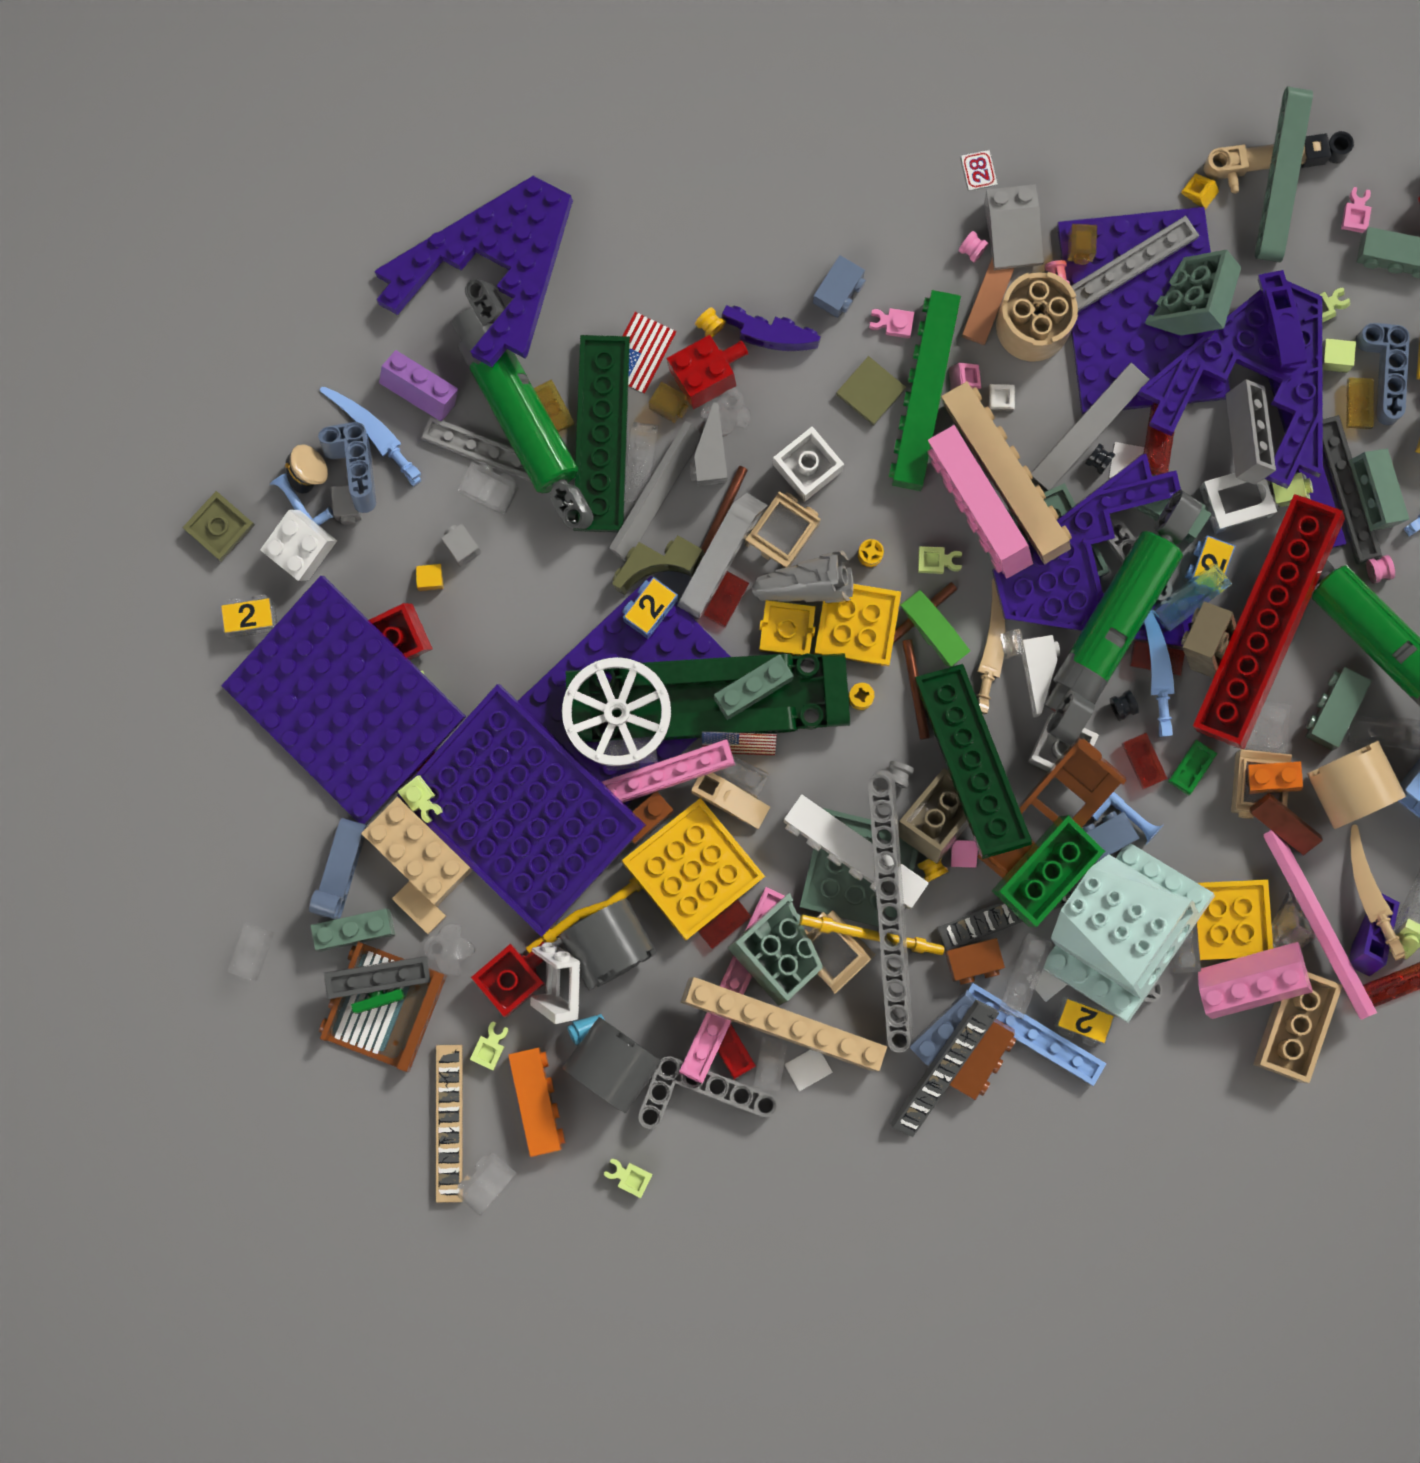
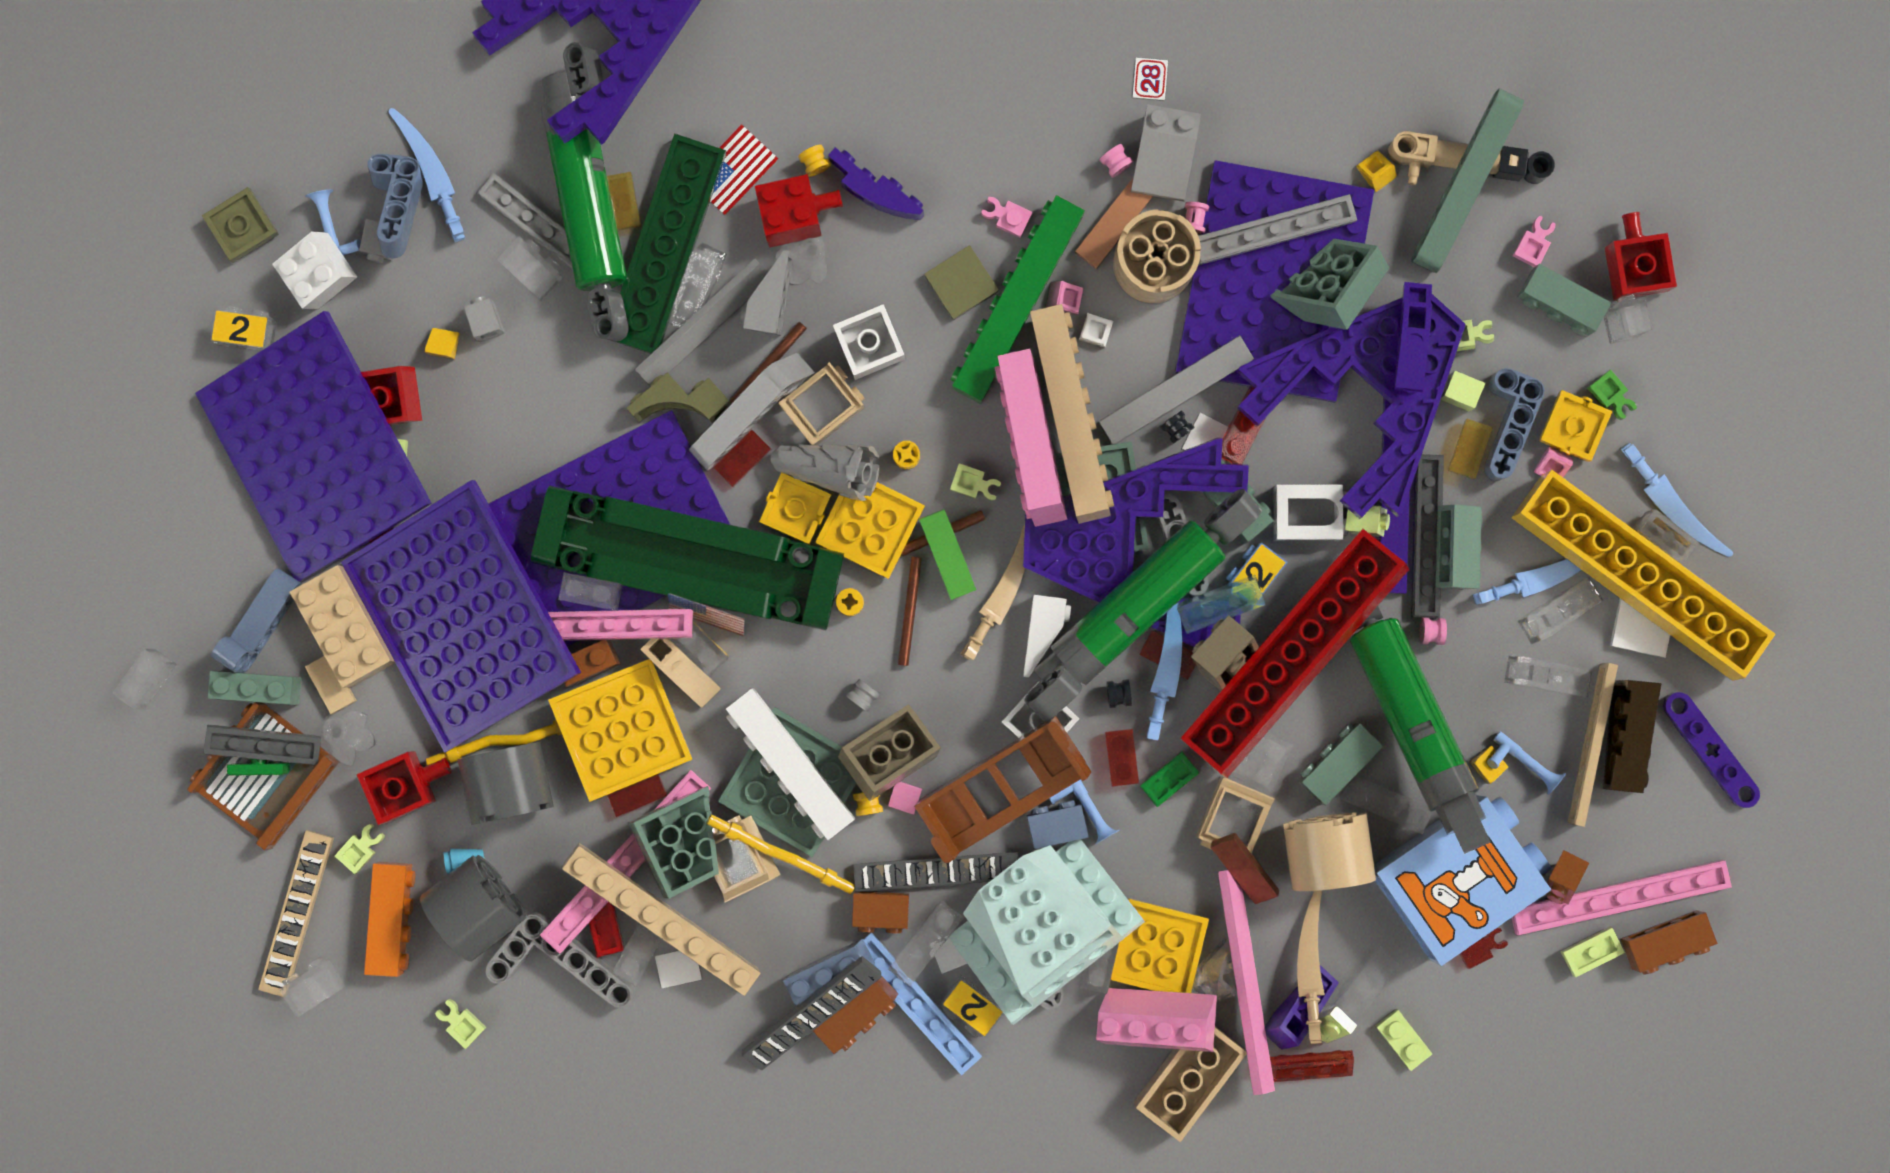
camera: 20 degrees right, 5 degrees up
(305, 468) = (346, 191): tan piece -> none
(417, 796) = (360, 570): yellowish green plate -> none
(418, 385) = (488, 137): medium lavender brick -> none
(550, 1002) = (432, 825): white panel -> none
(616, 704) = (543, 514): white wheel -> none
(649, 607) = (656, 445): brick -> none
(668, 403) = (745, 233): clear yellow brick -> none
(753, 687) = (733, 563): sand green brick -> none
(839, 286) = (961, 162): sand blue brick -> none
(886, 923) = (812, 828): light grey beam -> none
(973, 761) = (939, 707): dark green plate -> none
(1012, 643) = (1023, 594): clear tile -> none
(1048, 871) = (979, 845): green brick -> none
(1082, 243) = (1230, 192): clear yellow brick -> none
(1250, 432) = (1341, 447): light grey brick -> none
(1275, 777) = (1247, 818): orange brick -> none

